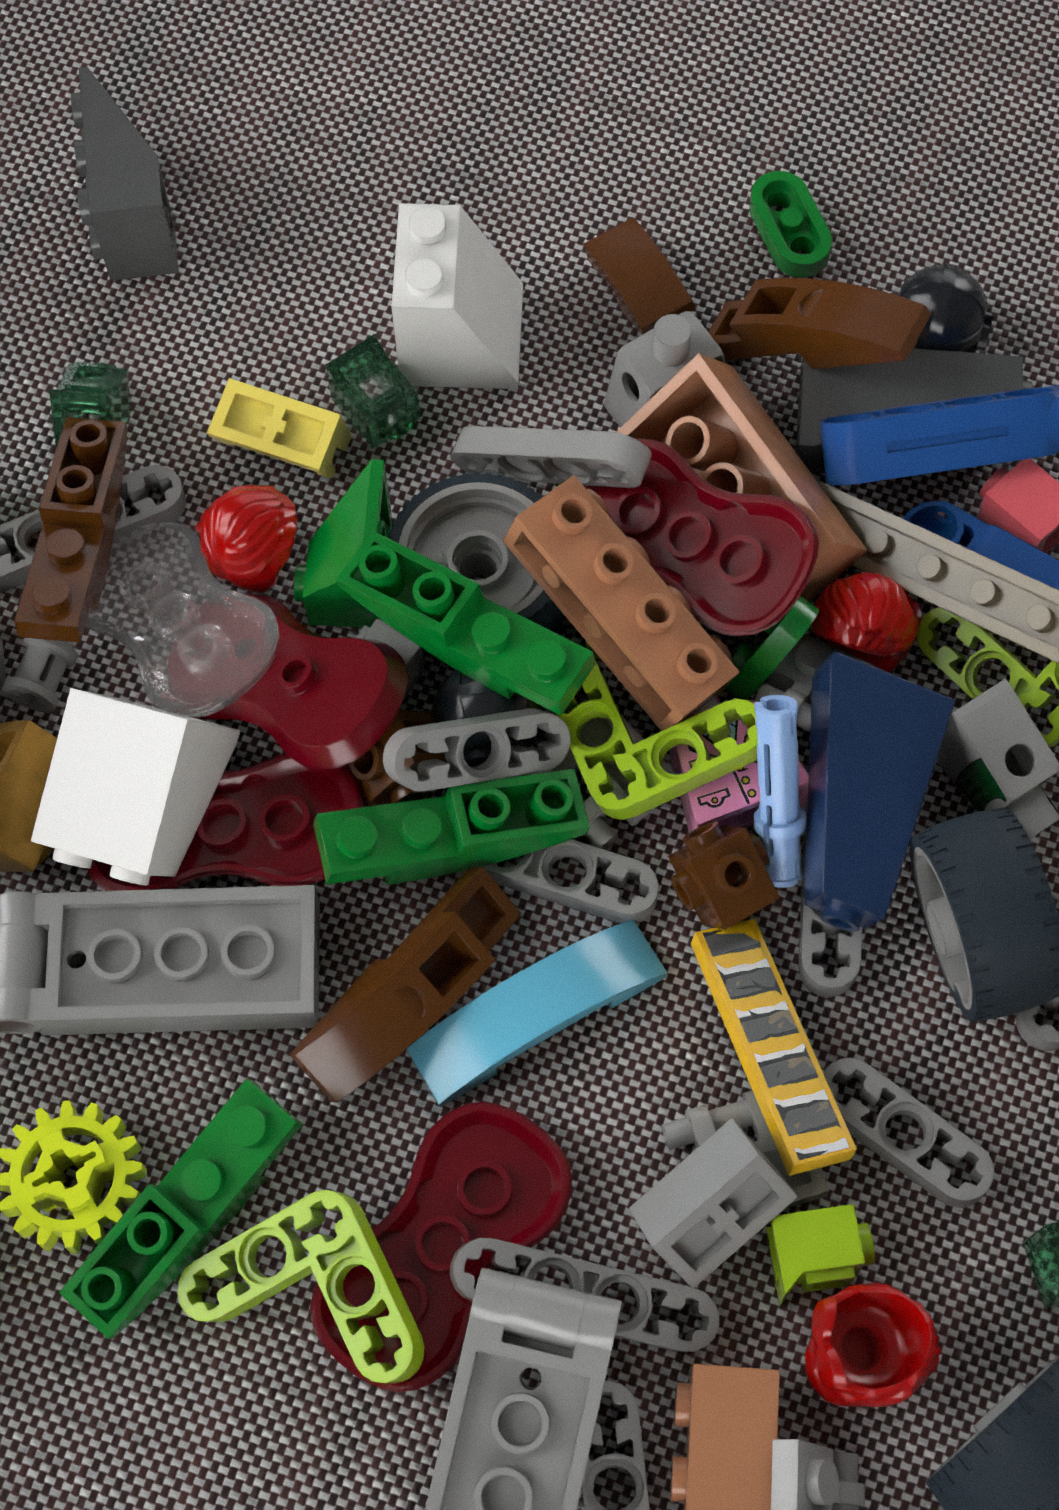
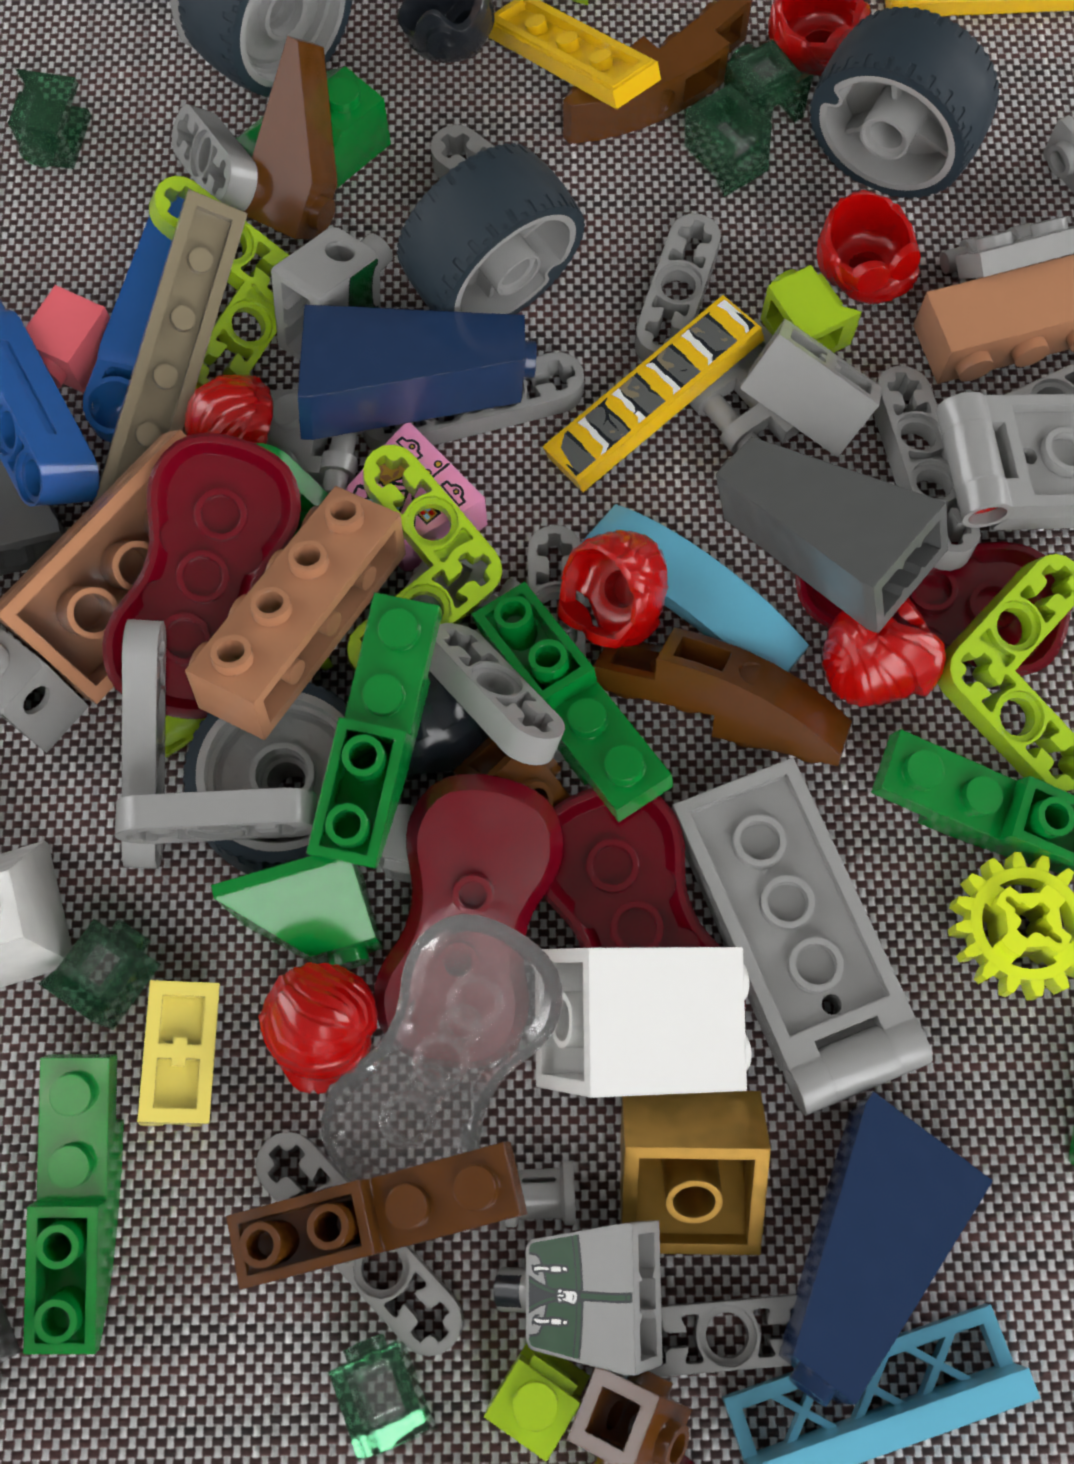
camera: 110 degrees left, 5 degrees up
(90, 389) = (193, 1284): clear green window -> none
(190, 334) = (76, 1207): none -> green slope
(374, 1130) = (884, 665): none -> red hair
(445, 478) = (215, 815): none -> light grey beam
(520, 1134) = (835, 527): none -> dark grey slope
(555, 914) = (625, 586): none -> red hair
(722, 874) = (520, 470): reddish brown brick -> none
(779, 813) = (394, 423): light blue pin -> none

